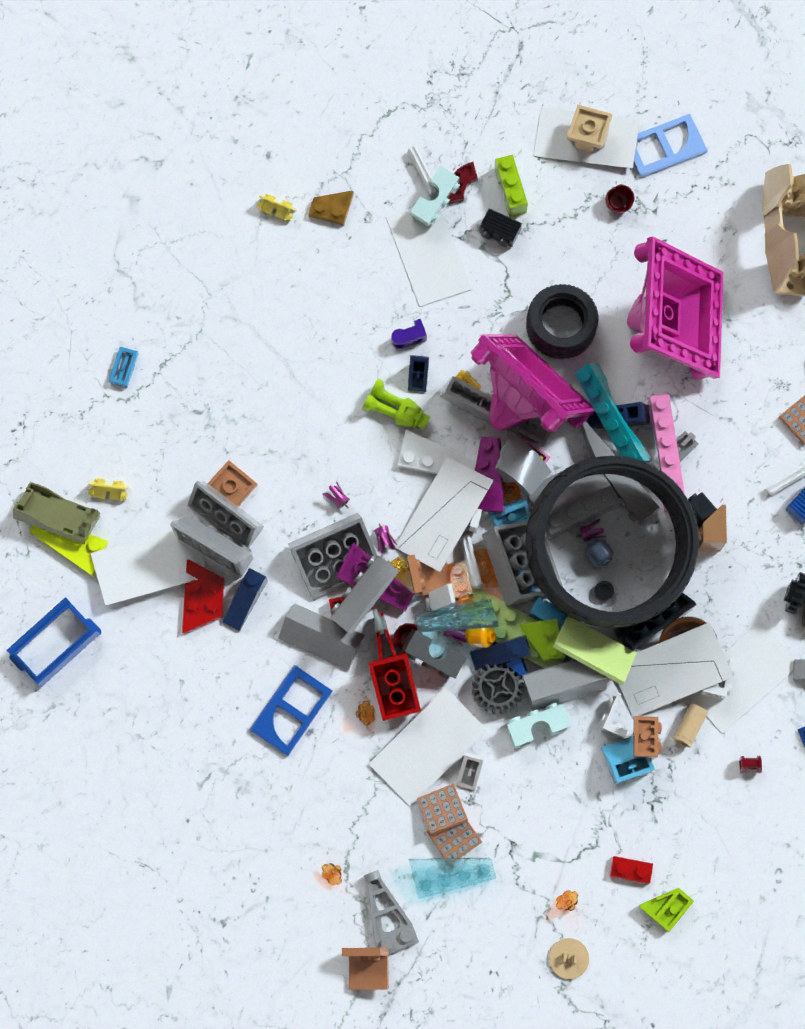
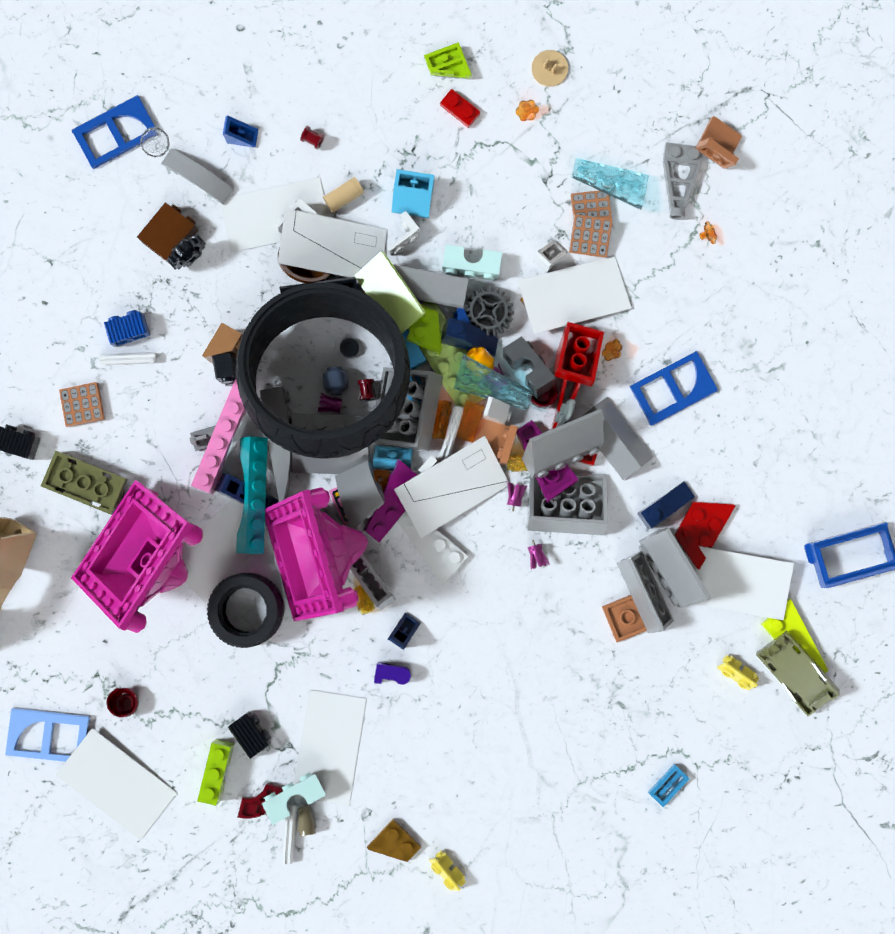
camera: 155 degrees left, 10 degrees up
(407, 414) = (432, 599): lime piece -> none
(414, 185) = (306, 822): none -> dark tan cone
(568, 567) = (366, 389): none -> dark red bush
(589, 128) = (108, 789): tan panel -> none
(646, 737) = (389, 197): nougat bracket -> none
(762, 354) = (84, 482): none -> olive piece

